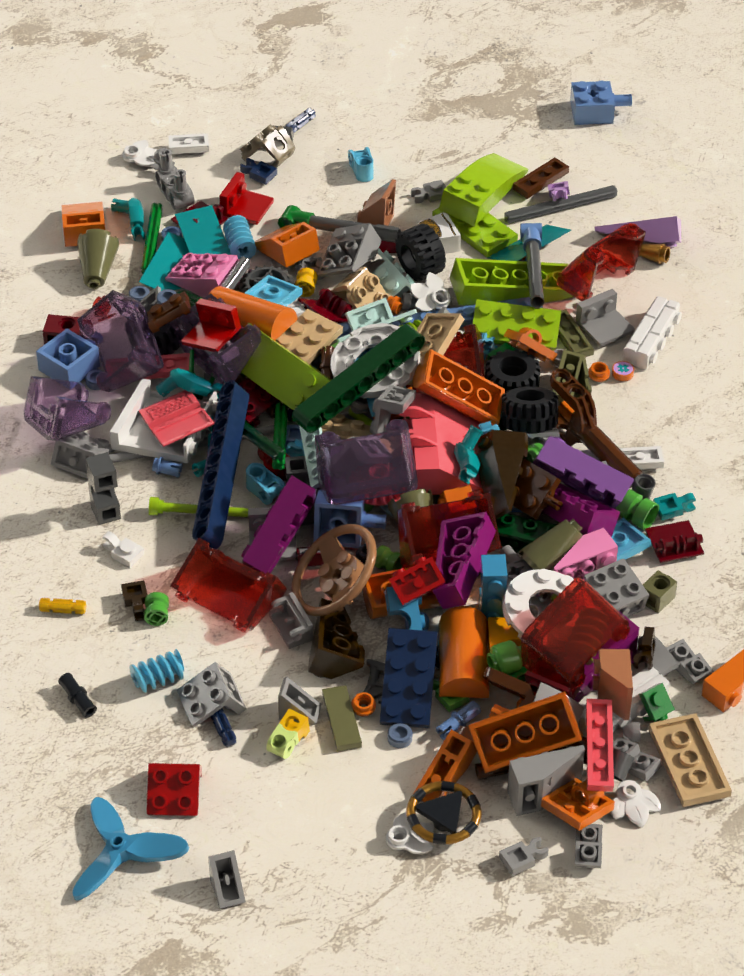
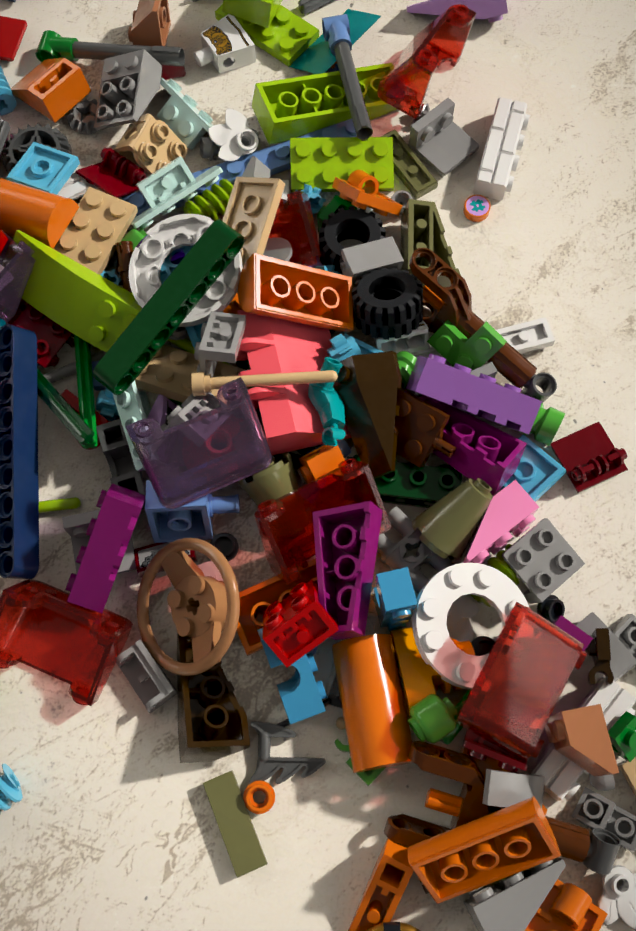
camera: 10 degrees left, 25 degrees up
(209, 693) = (63, 822): light grey bracket -> none
(223, 728) = (84, 867): dark blue axle -> none
(263, 482) = (81, 461): medium azure piece -> none
(288, 734) = (170, 873): leg -> none
(296, 699) = (176, 818): light grey slope -> none
(306, 279) = (82, 138): yellow wheel -> none
(375, 426) = (204, 383): none -> tan piece
(387, 559) = (249, 554): bright green wheel -> none
(394, 304) = (192, 156): orange plate -> none
(400, 735) = (313, 837): sand blue tile -> none
(408, 677) = (310, 755): dark blue plate -> none
(420, 251) = (211, 77): black tyre -> none
(458, 718) = (383, 801): medium blue axle -> none
(523, 378) = (370, 256): none -> light grey hinge
(597, 446) = (467, 352): none -> bright green plate
(599, 372) = (453, 210): orange plate -> none
(599, 745) = (581, 849): coral plate -> none
(655, 252) = (483, 32): pearl gold cone -> none
(661, 591) = (600, 536): olive brick -> none
(673, 506) = (577, 404): teal plate -> none

